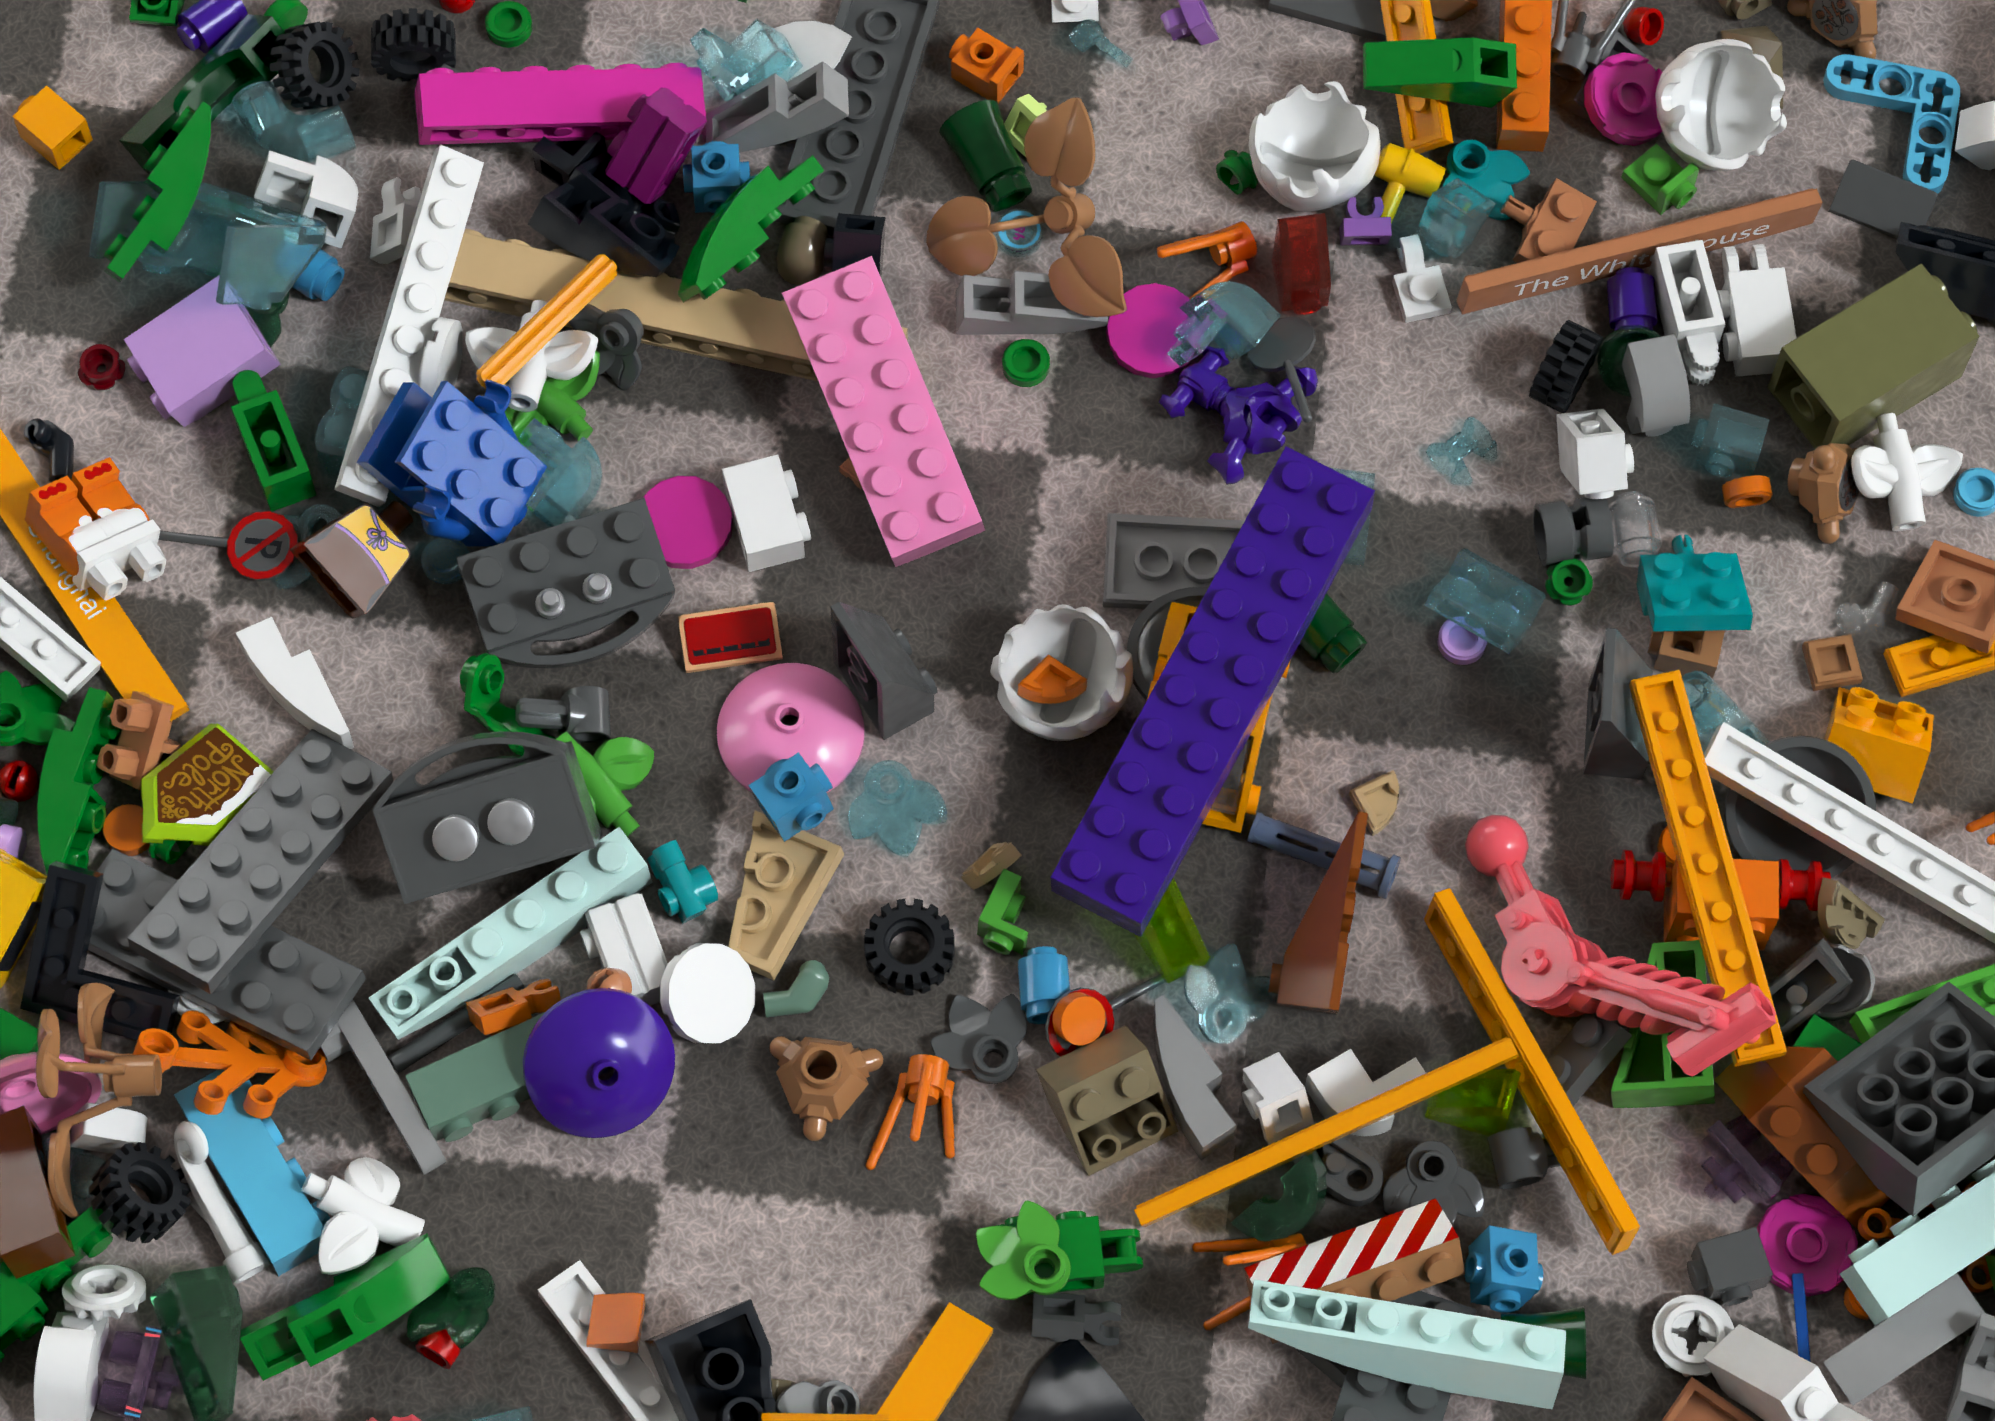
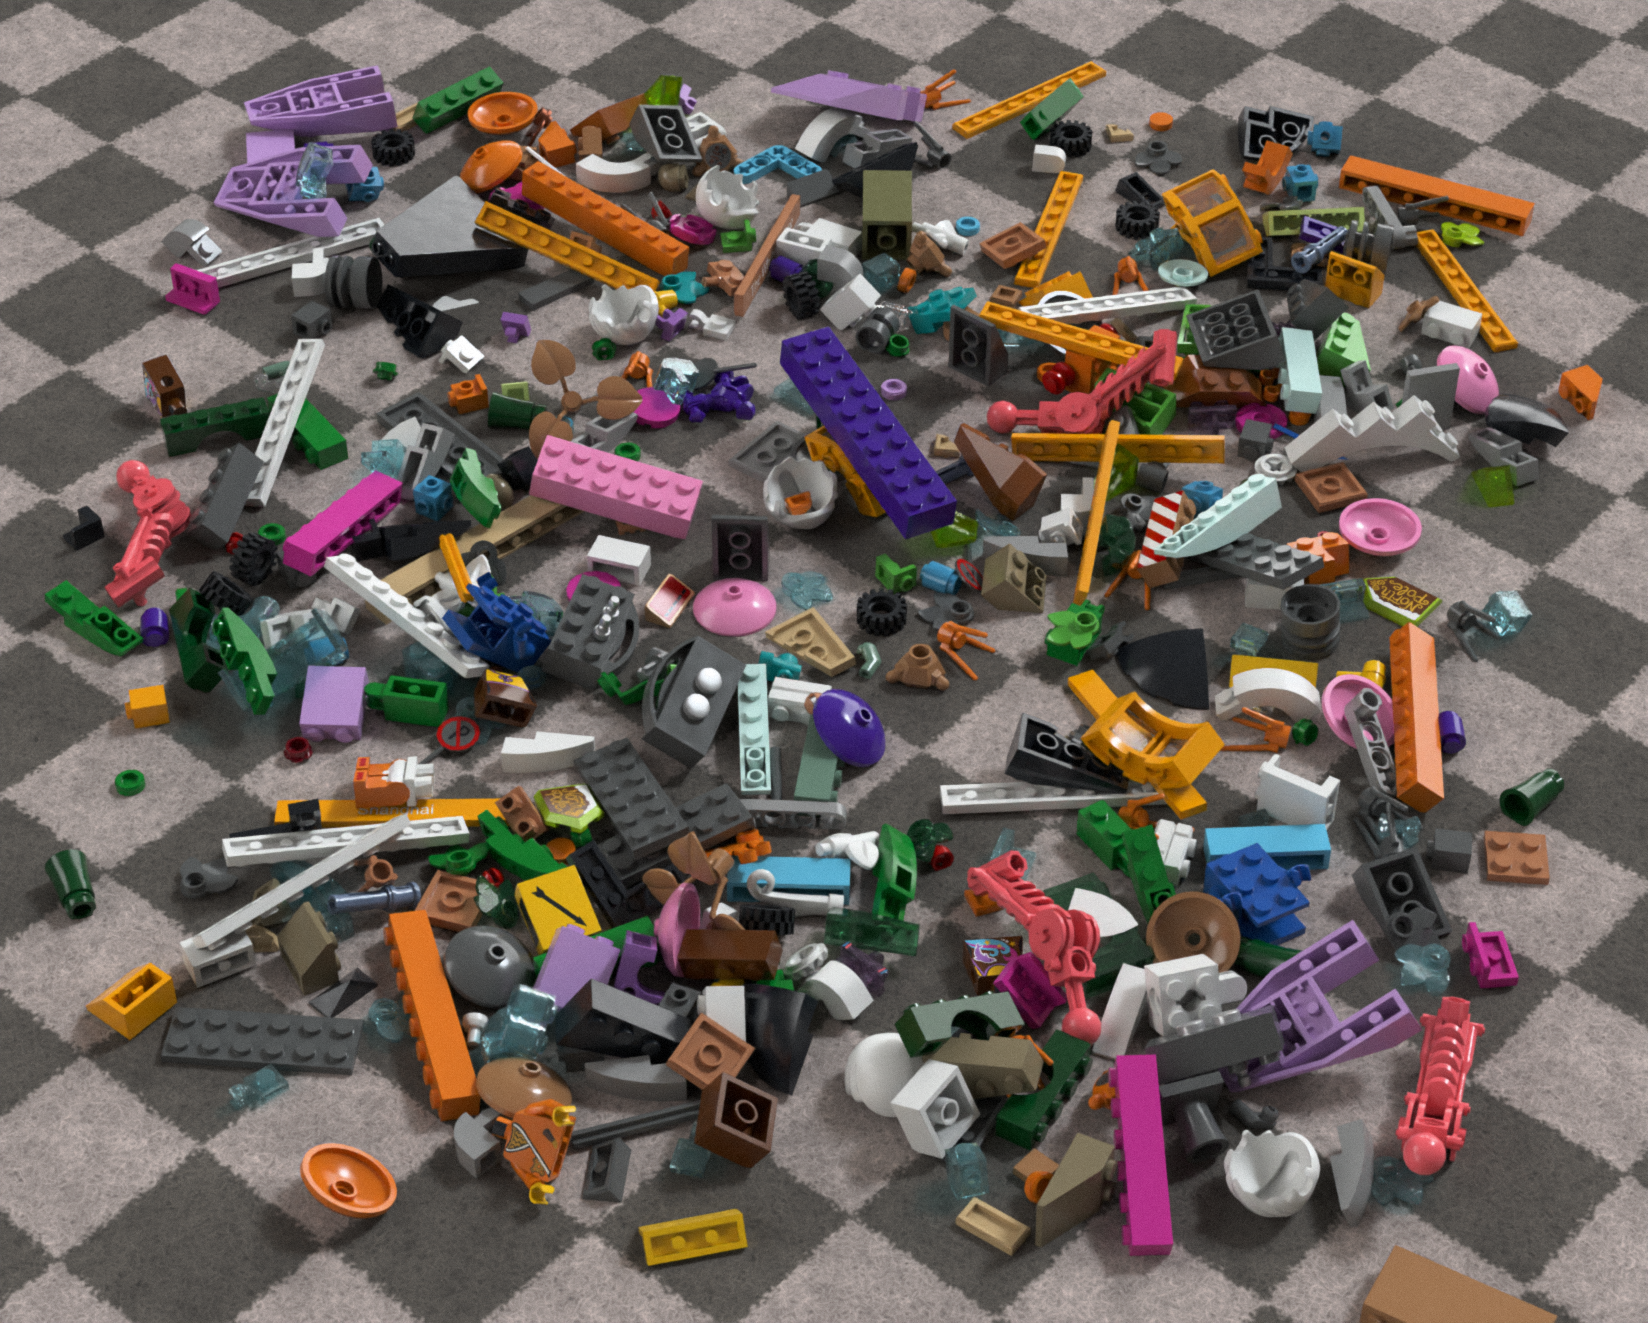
camera: 55 degrees left, 25 degrees down
(54, 444) = (323, 786): black arm -> none
(511, 1007) = (790, 753): orange plate -> none
(616, 1321) = (986, 779): orange slope -> none
(654, 145) = (401, 497): magenta brick -> none
(707, 993) = (843, 677): white tile -> none
(793, 795) = (774, 600): dark azure brick -> none
(998, 855) = (866, 567): tan tile -> none
(1079, 1018) = (970, 568): orange tile -> none
(1089, 34) = (487, 361): clear light blue hand -> none
(1302, 263) = (672, 340): clear red slope -> none
(1442, 69) = (633, 252): green slope -> none
(1454, 218) = (700, 291): clear light blue slope -> none
(1486, 600) = (886, 366): clear light blue bracket -> none
(1868, 617) = (994, 278): clear arm -> none

